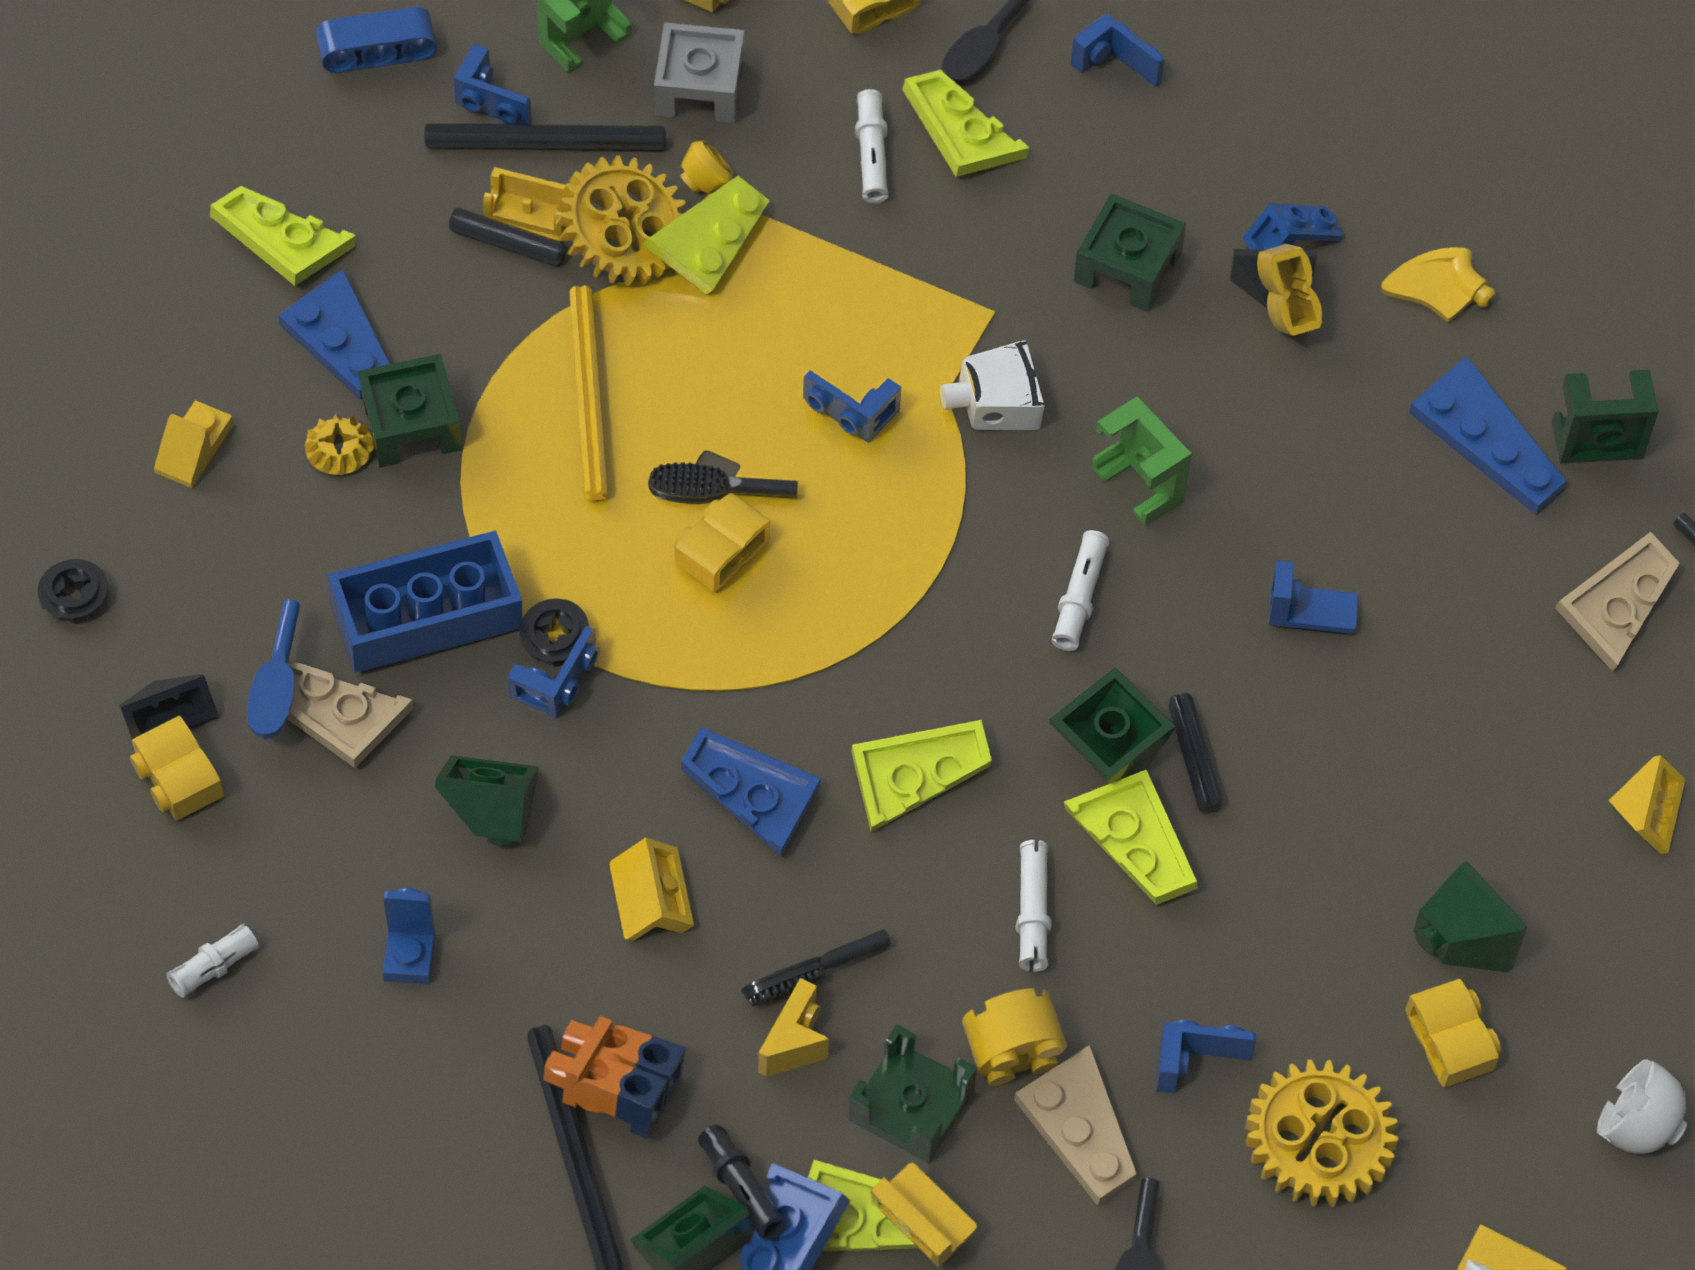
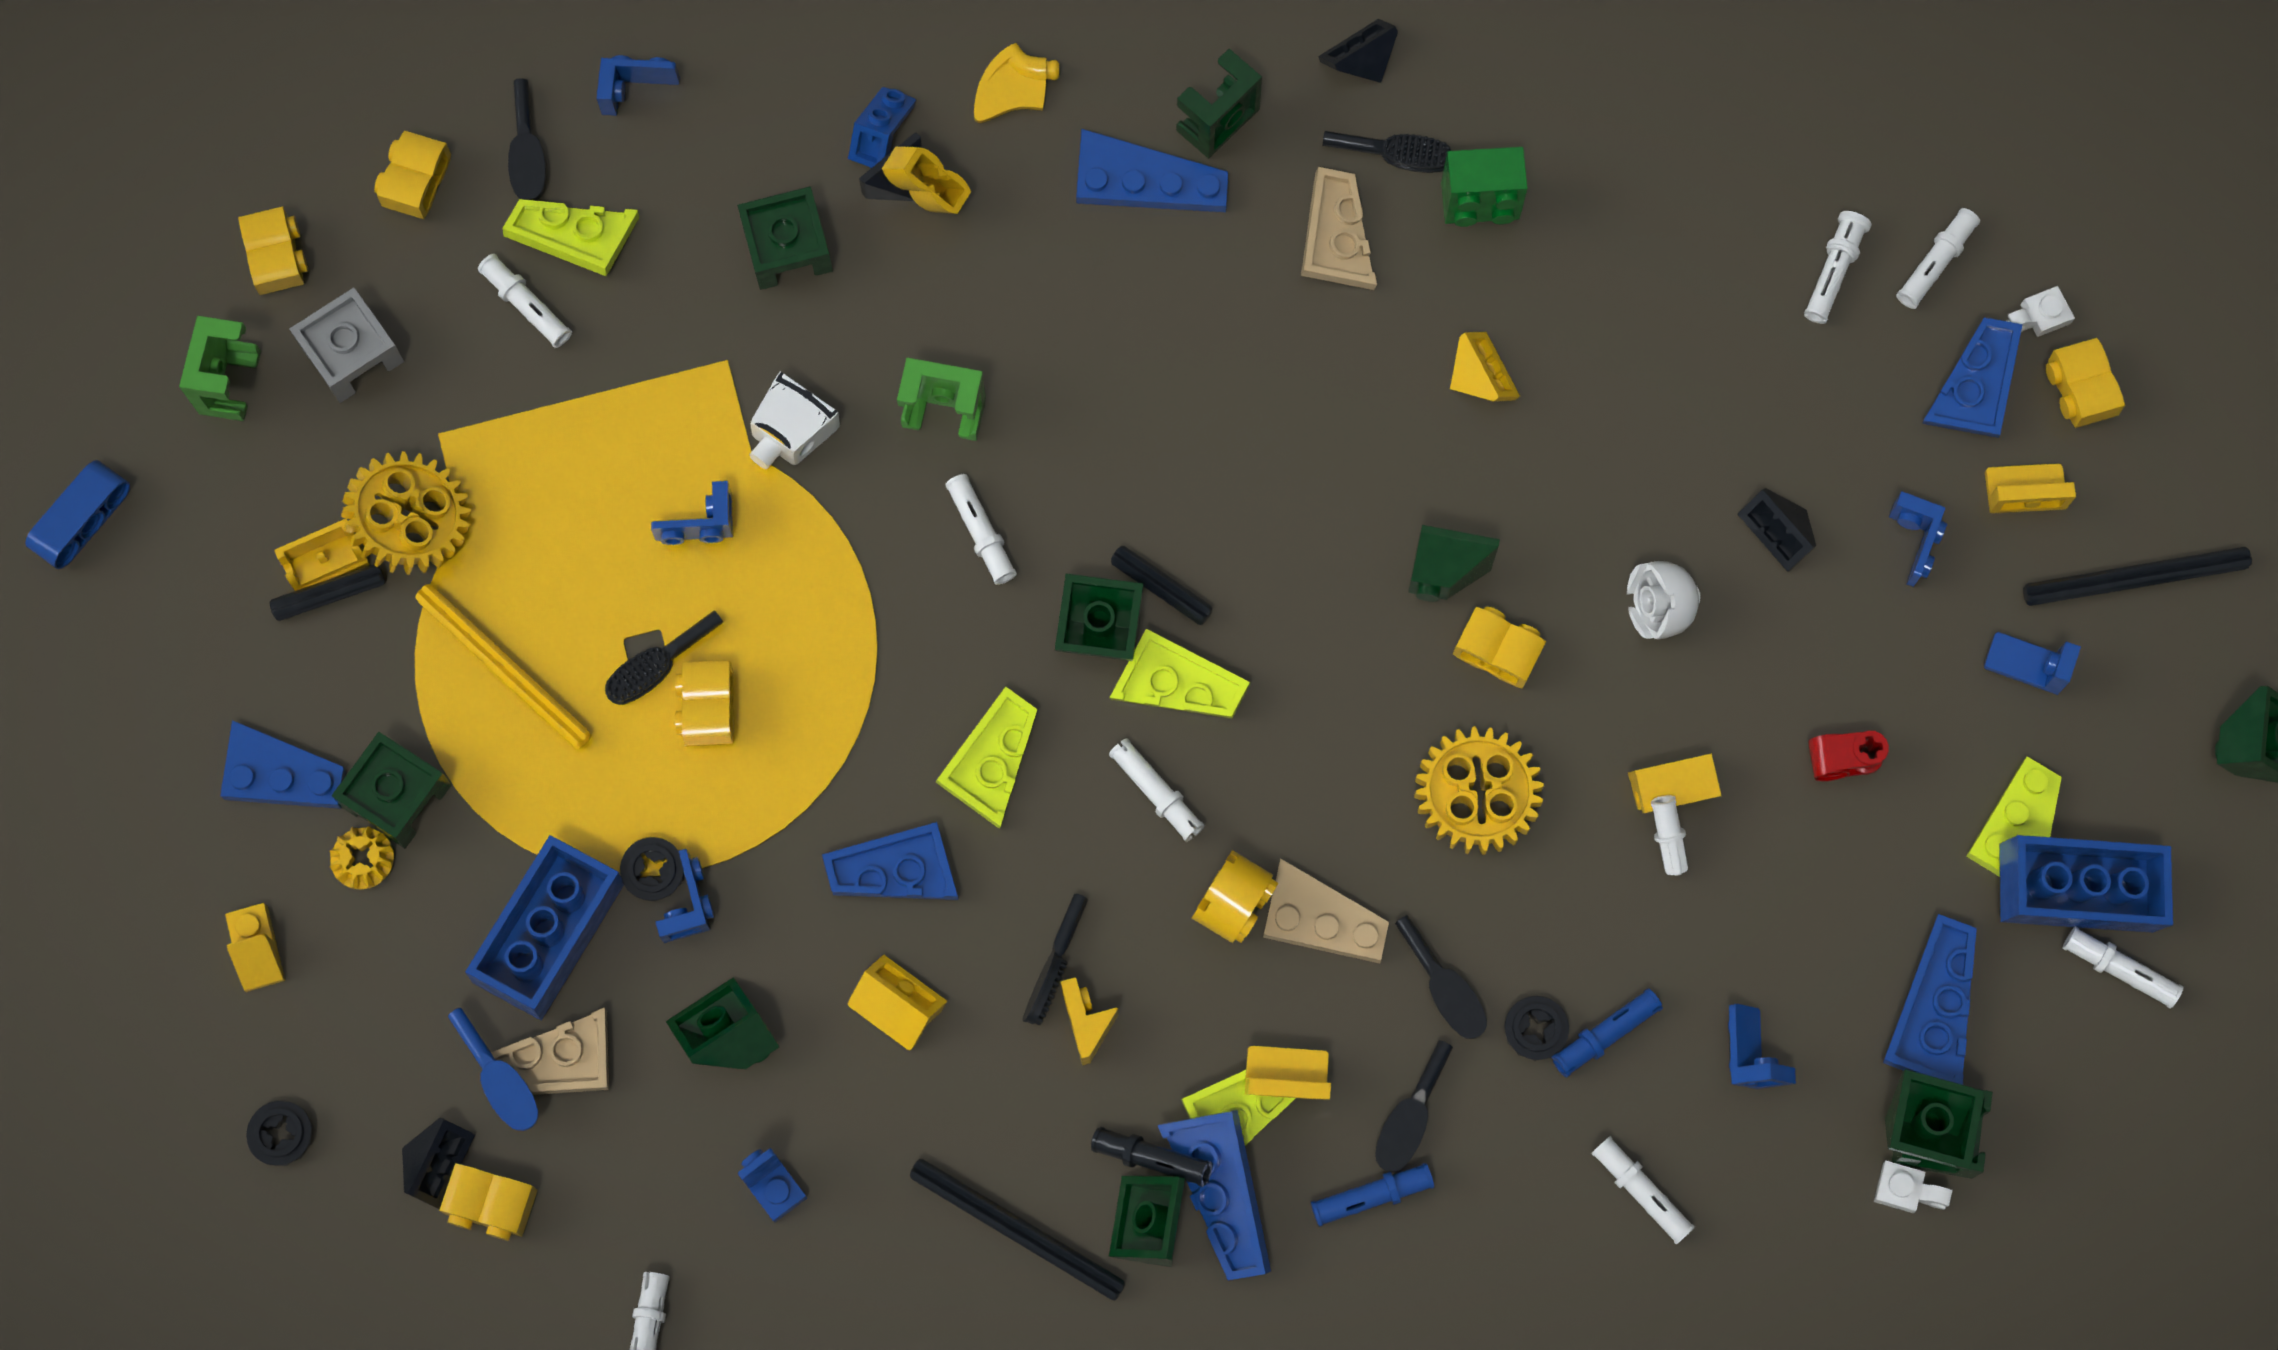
camera: 40 degrees left, 15 degrees up
(281, 239) = (162, 732): neon yellow wing -> none
(477, 94) = (197, 500): blue bracket -> none
(544, 136) = (278, 489): black axle -> none
(616, 1072) = (1002, 1154): hips -> none
(705, 168) = (423, 419): yellow cone -> none
(709, 234) = (477, 470): neon yellow wing -> none
(912, 1097) = (1201, 996): dark green panel -> none
(1189, 1037) = (1345, 822): blue bracket -> none
(1309, 607) = (1143, 410): blue bracket -> none

